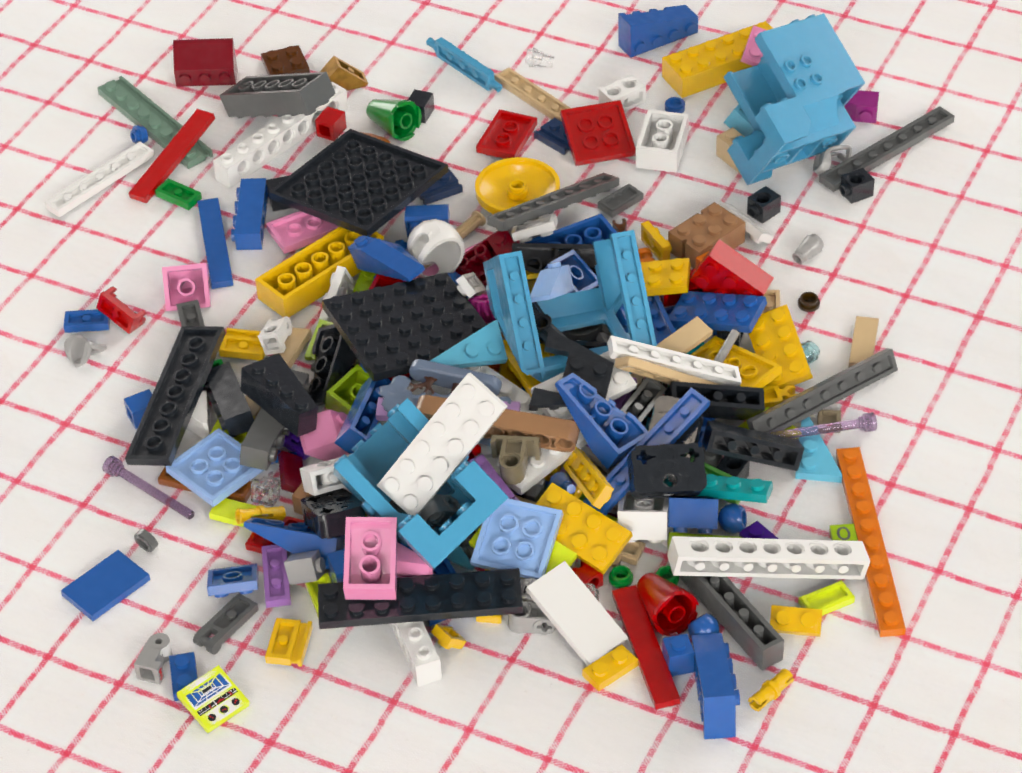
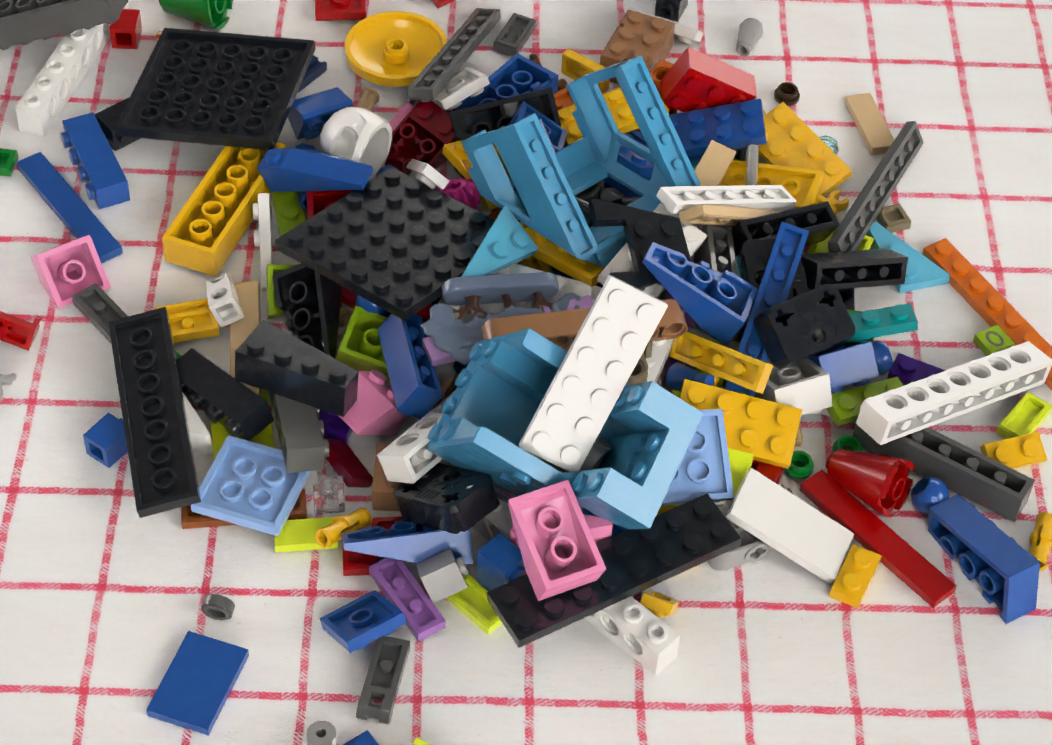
camera: 30 degrees left, 5 degrees up
(114, 467) = (117, 525): clear purple piece -> none
(288, 642) = (475, 676): yellow plate -> none
(298, 230) = (168, 164): bright pink plate -> none
(678, 654) = (926, 533): blue brick -> none
(865, 422) = (933, 209): clear purple piece -> none

